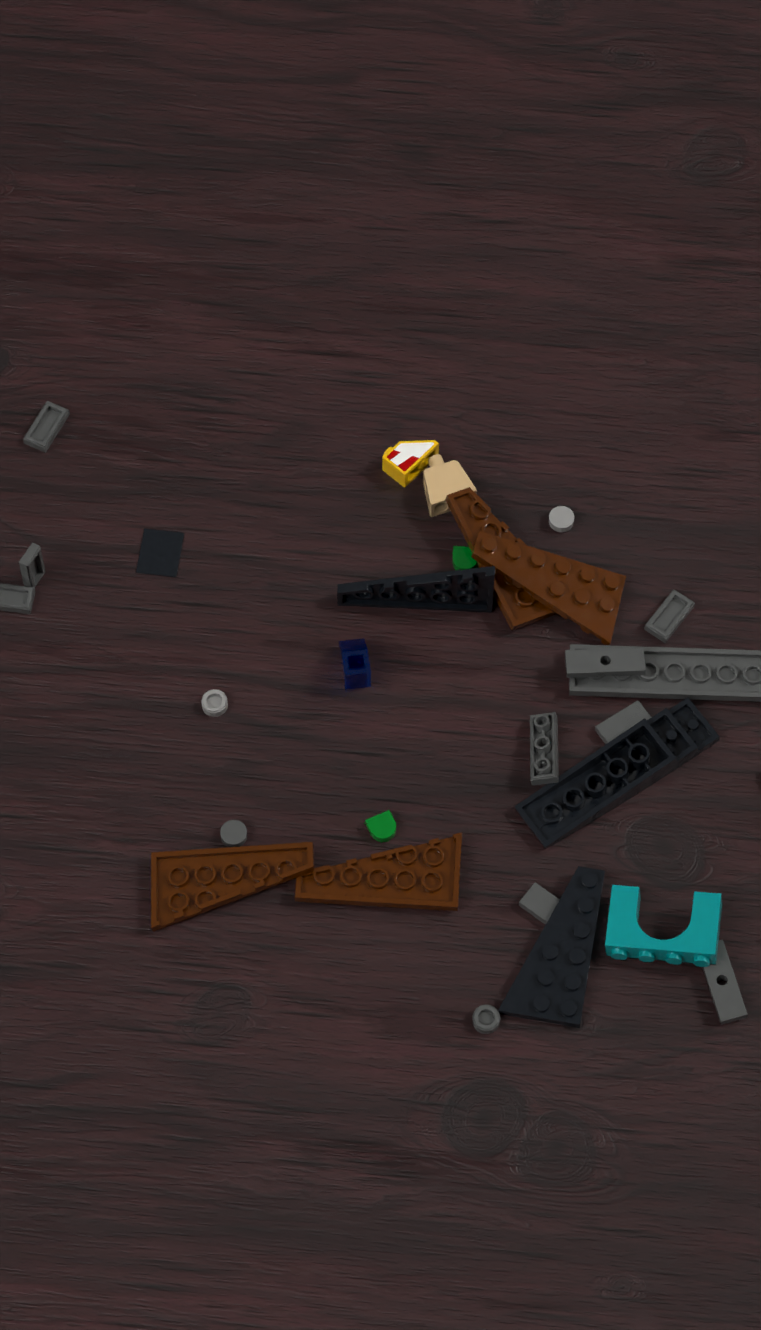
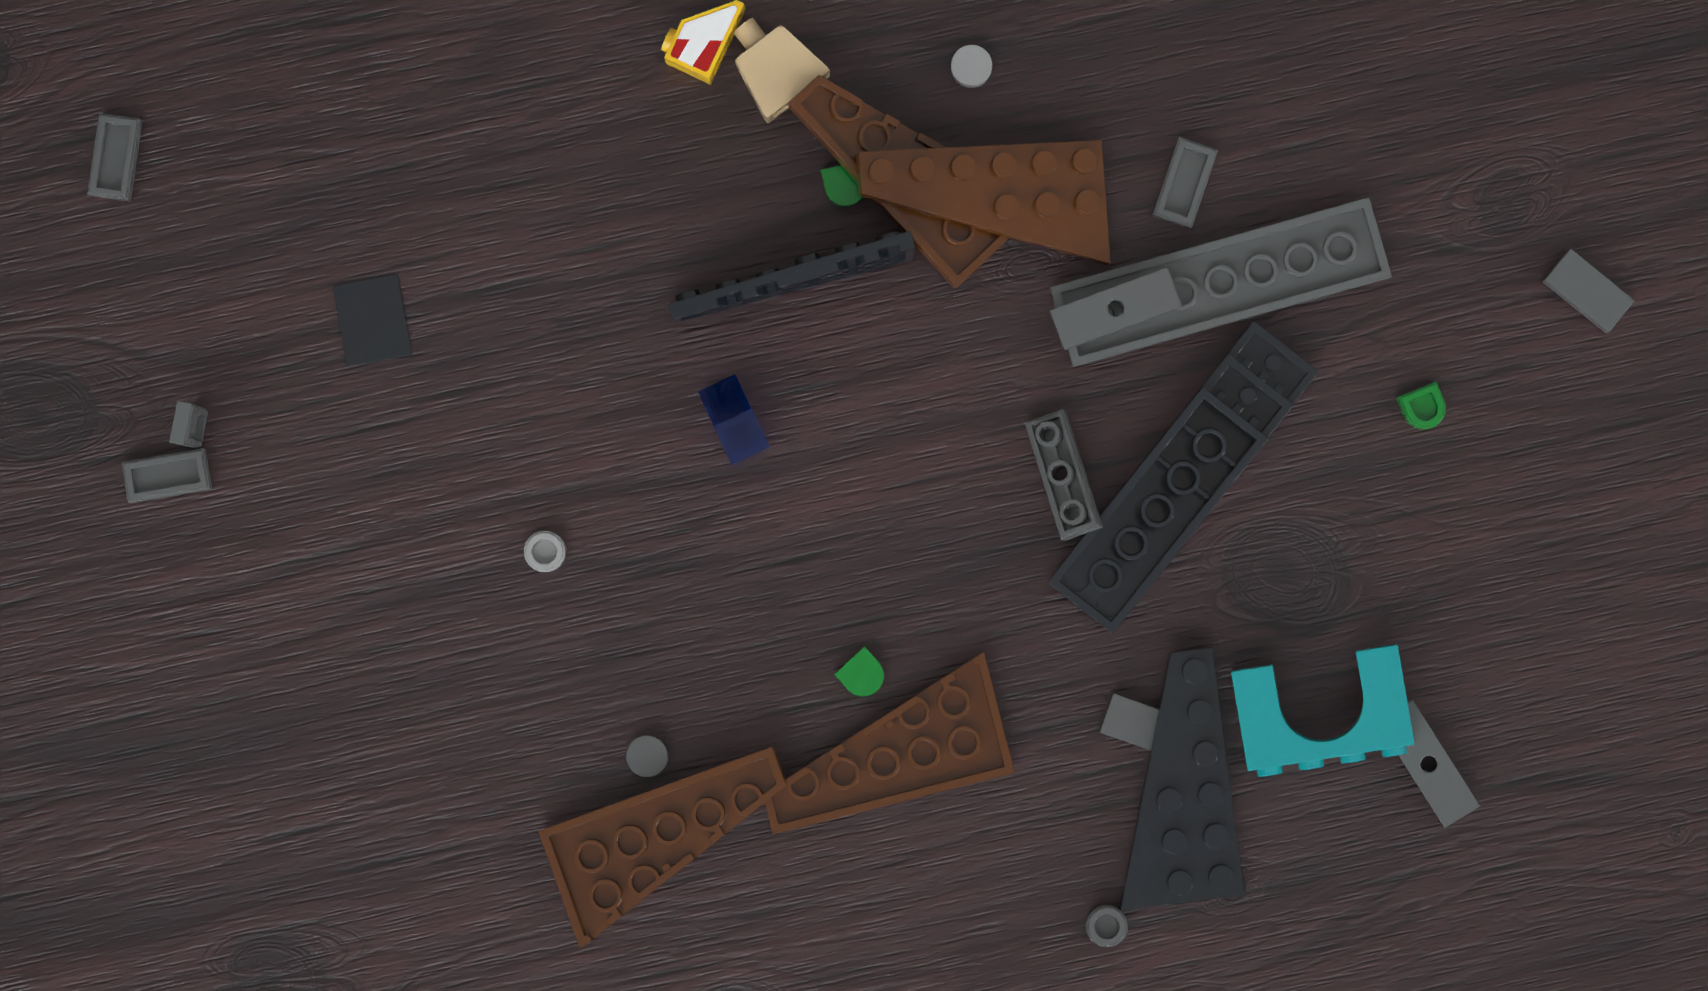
camera: 20 degrees left, 25 degrees up
(621, 722) = (1169, 391): dark grey tile -> none

